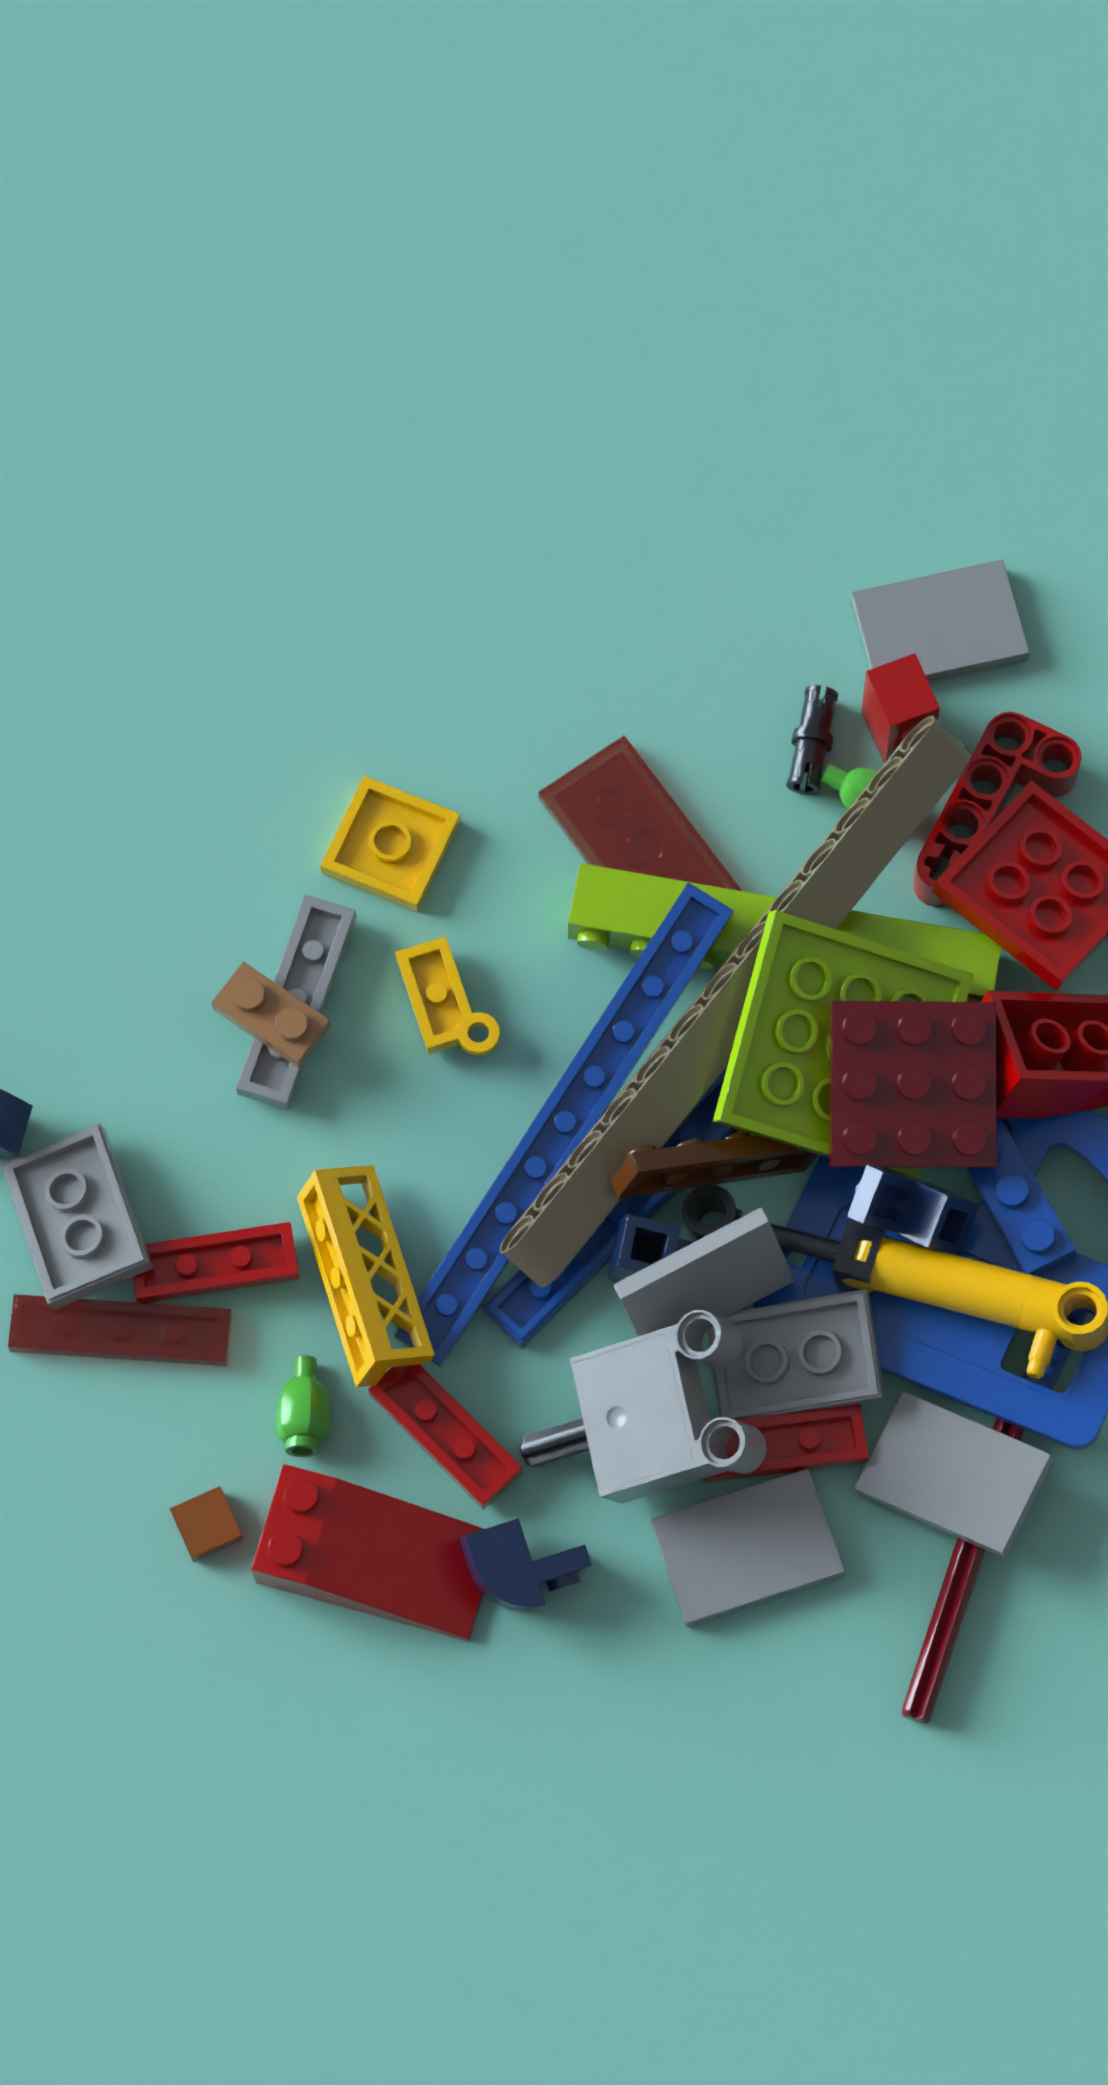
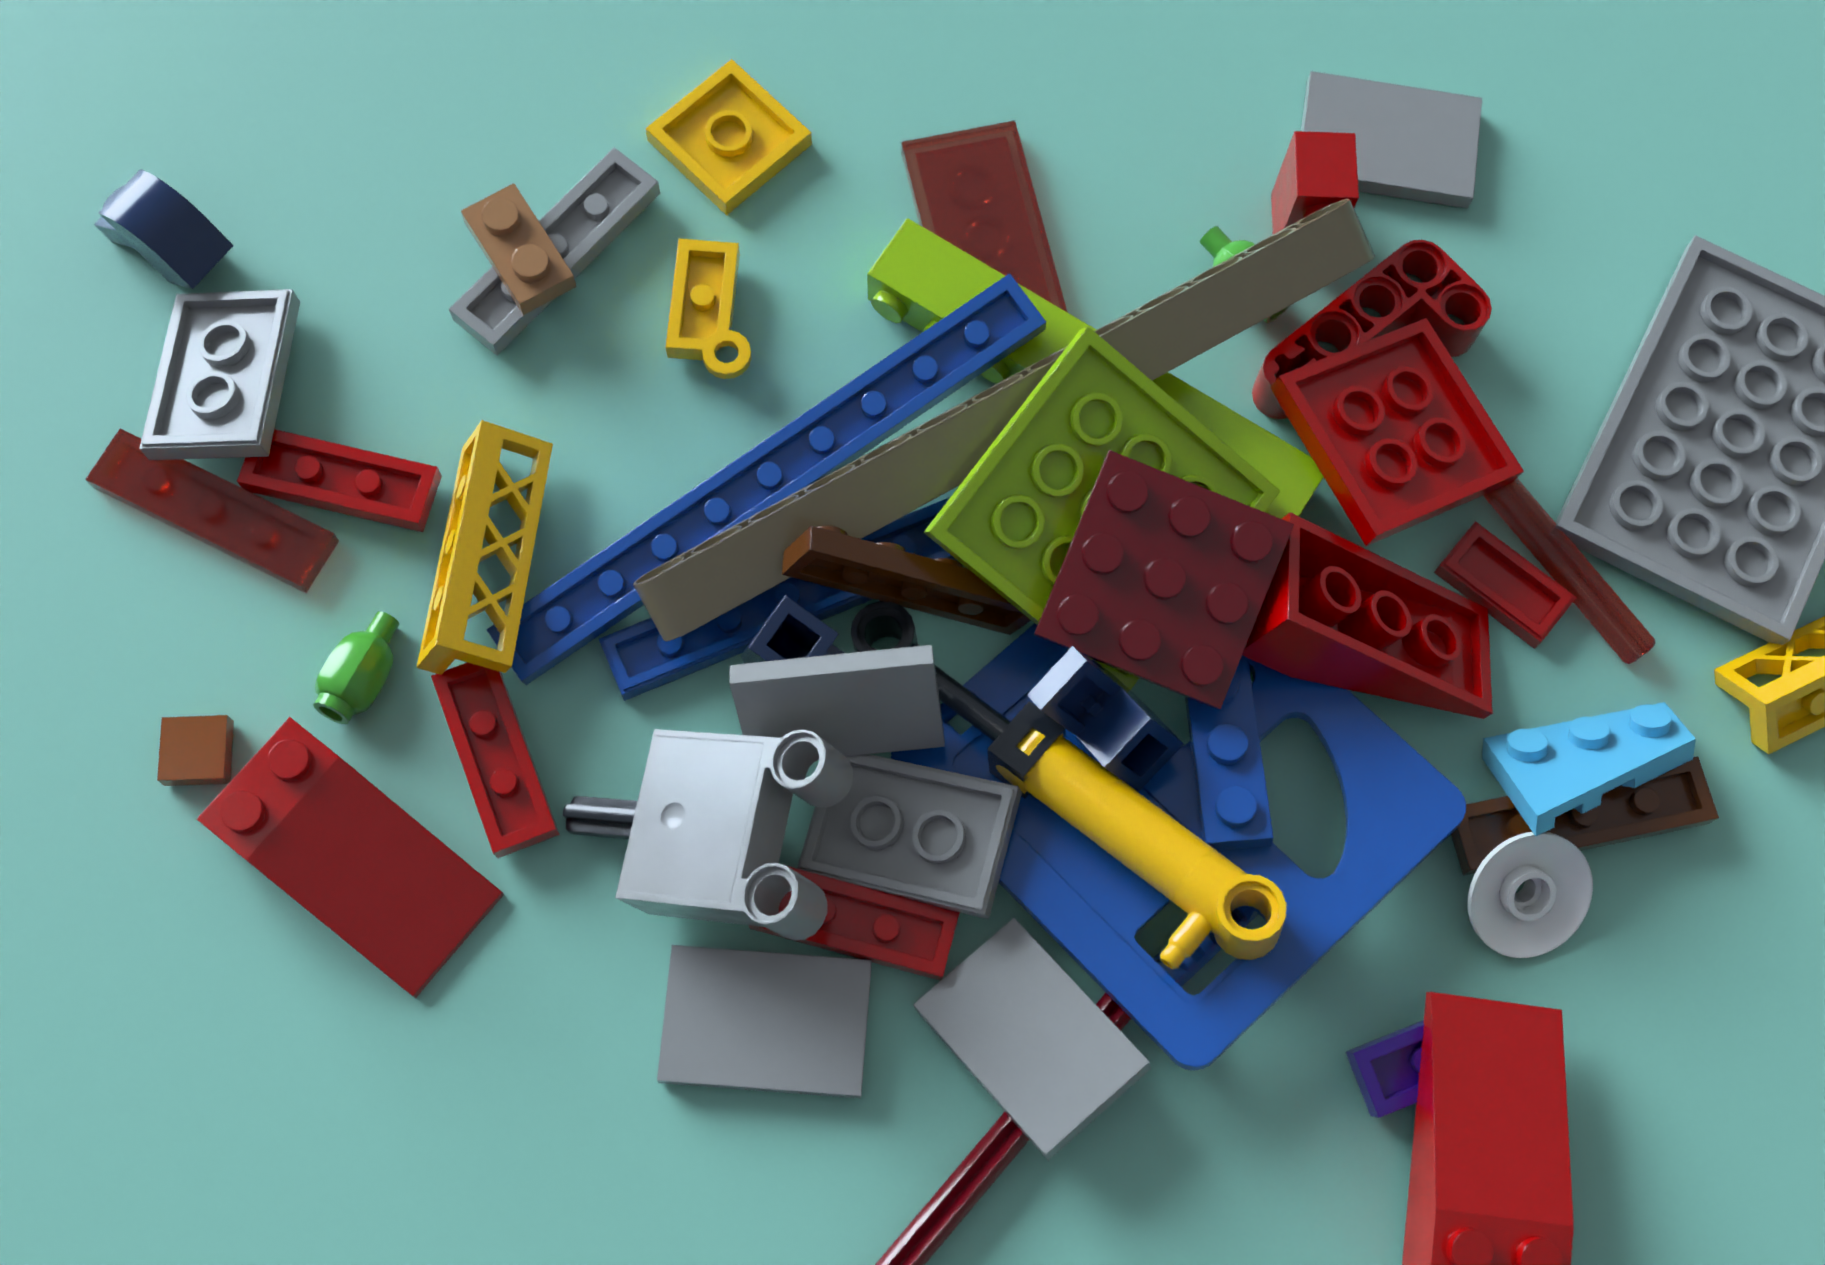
camera: 15 degrees right, 0 degrees up
(505, 1570) = (481, 944): dark blue brick -> none
(812, 740) = (1208, 199): black pin -> none

